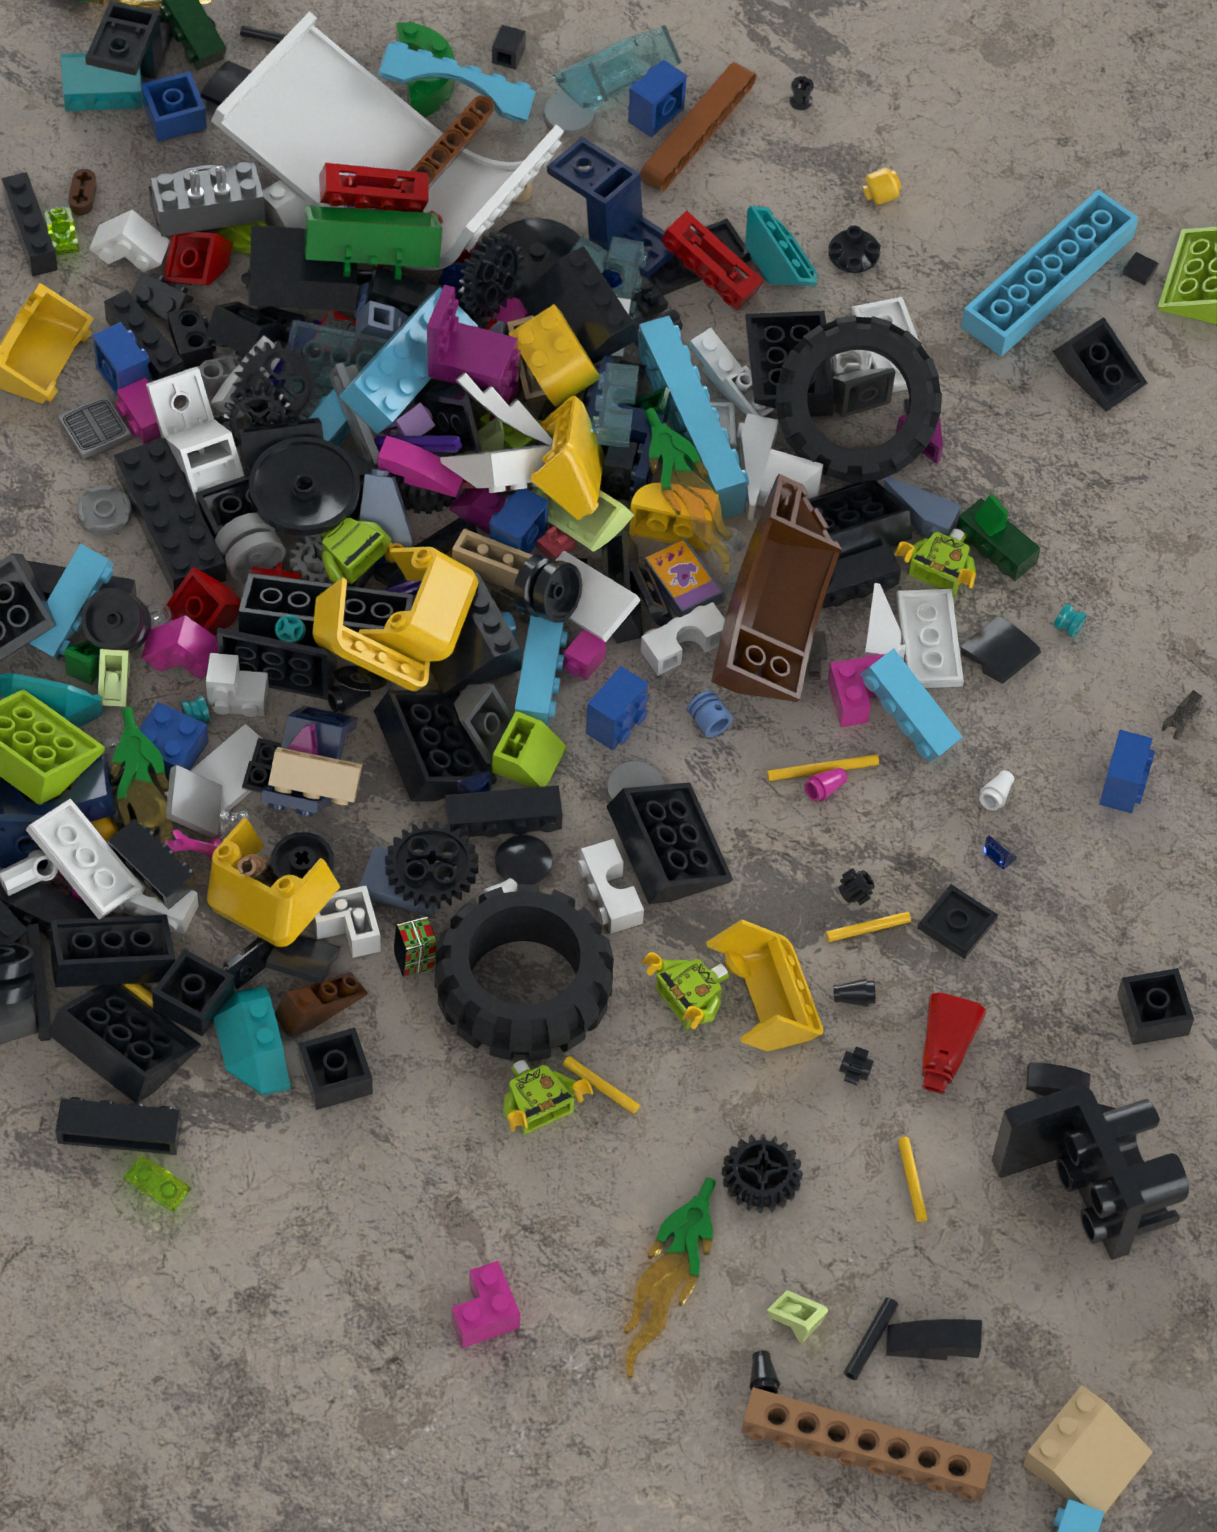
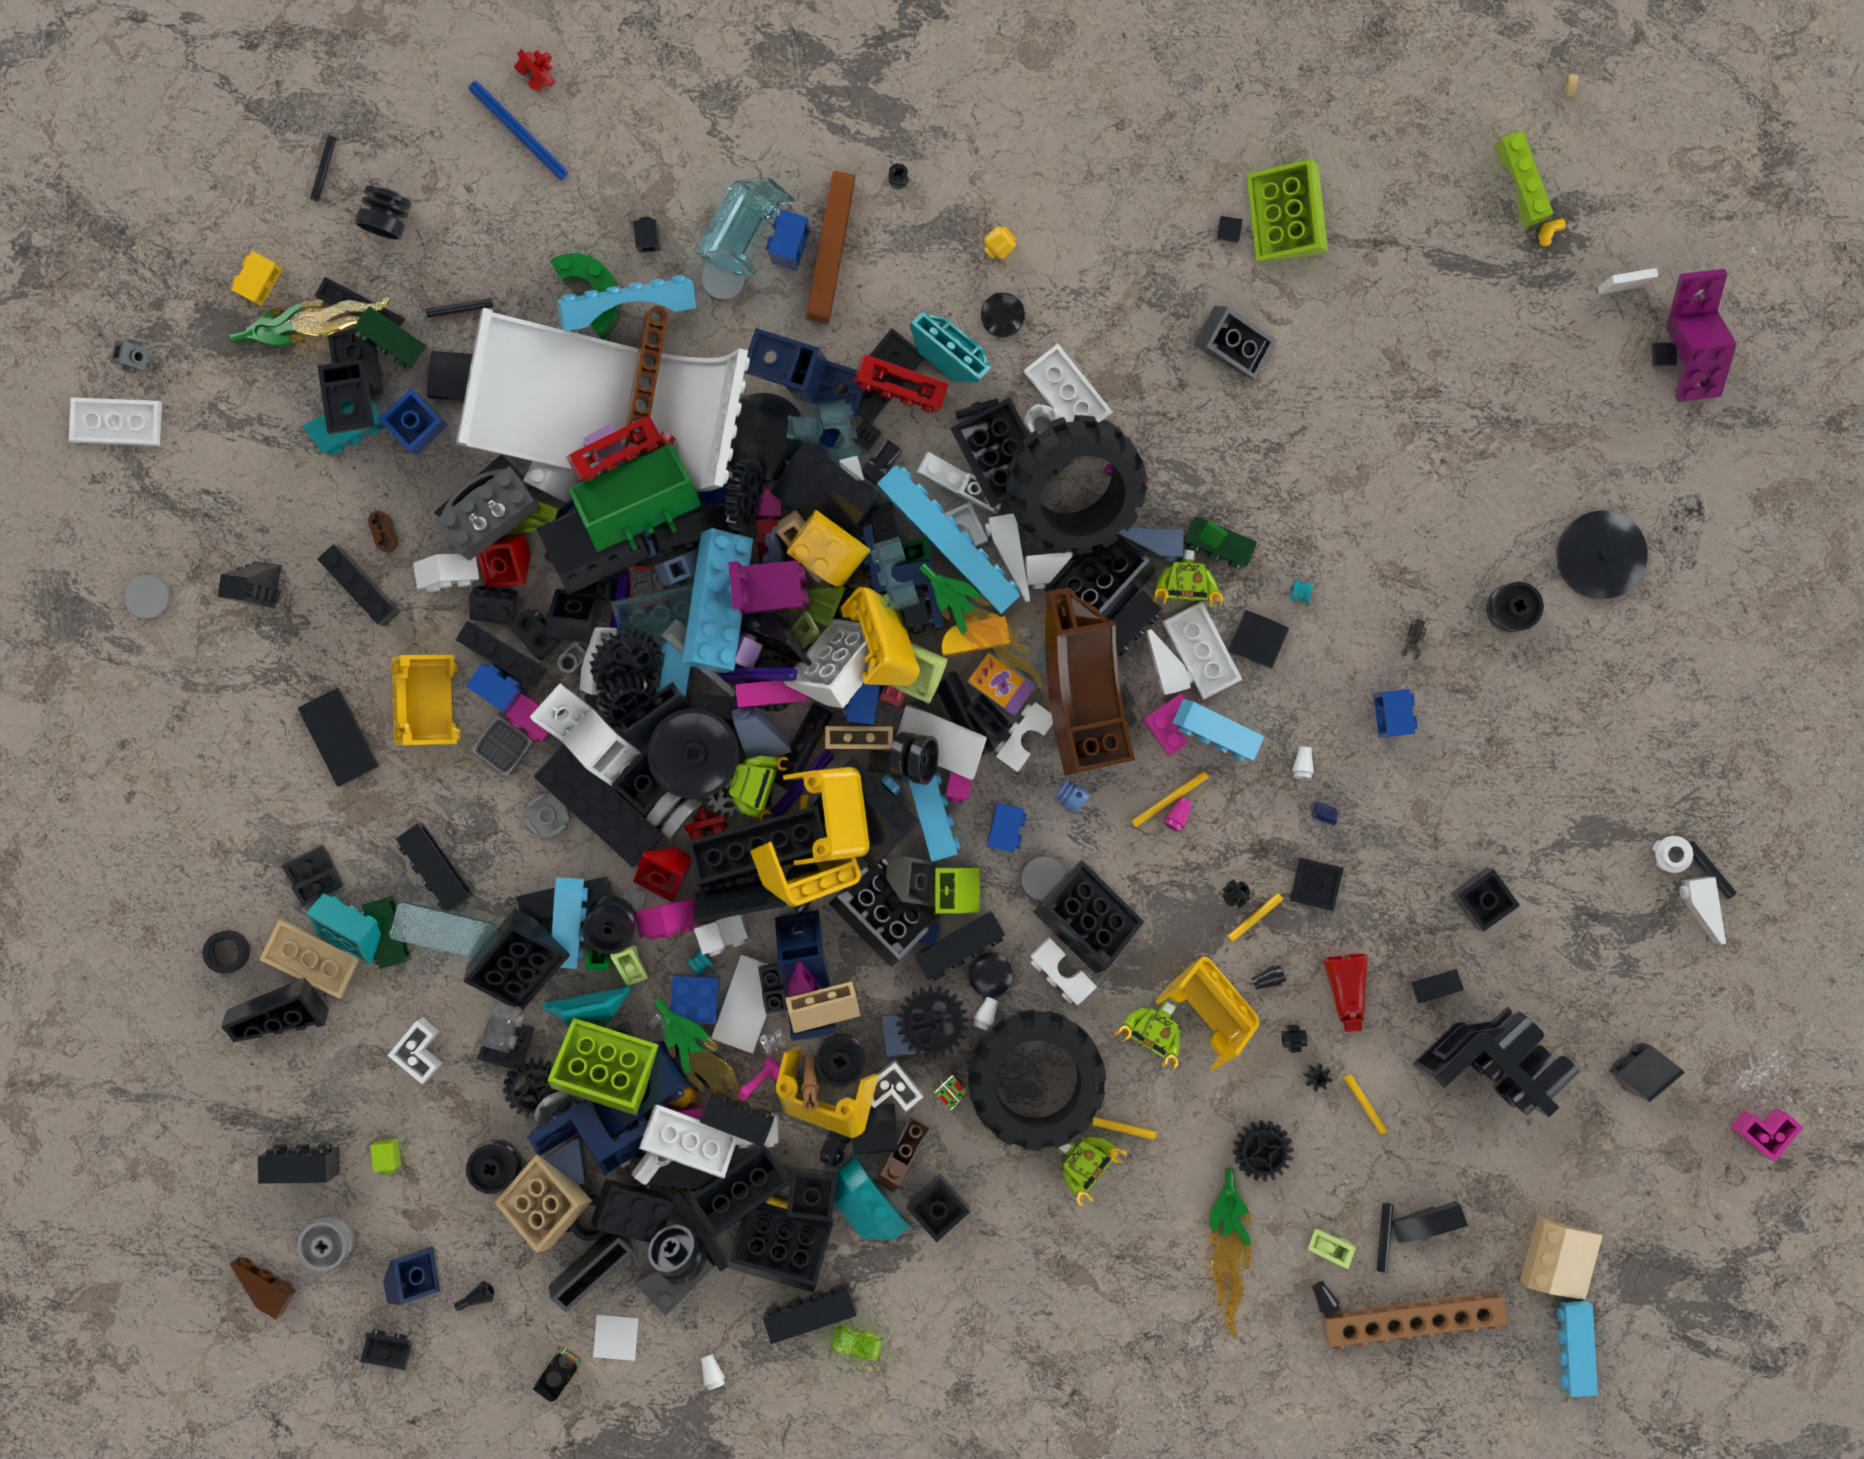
camera: 20 degrees left, 30 degrees up
(62, 230) = (386, 576): clear neon green slope -> none
(194, 801) = (739, 1046): light grey tile -> none
(288, 624) = (743, 891): teal wheel -> none
(490, 1312) = (1126, 1336): dark pink brick -> none
(513, 414) = (817, 624): white slope -> none
(866, 1120) = (1314, 1071): none -> black gear
(1049, 272) = (1165, 271): medium azure brick -> none

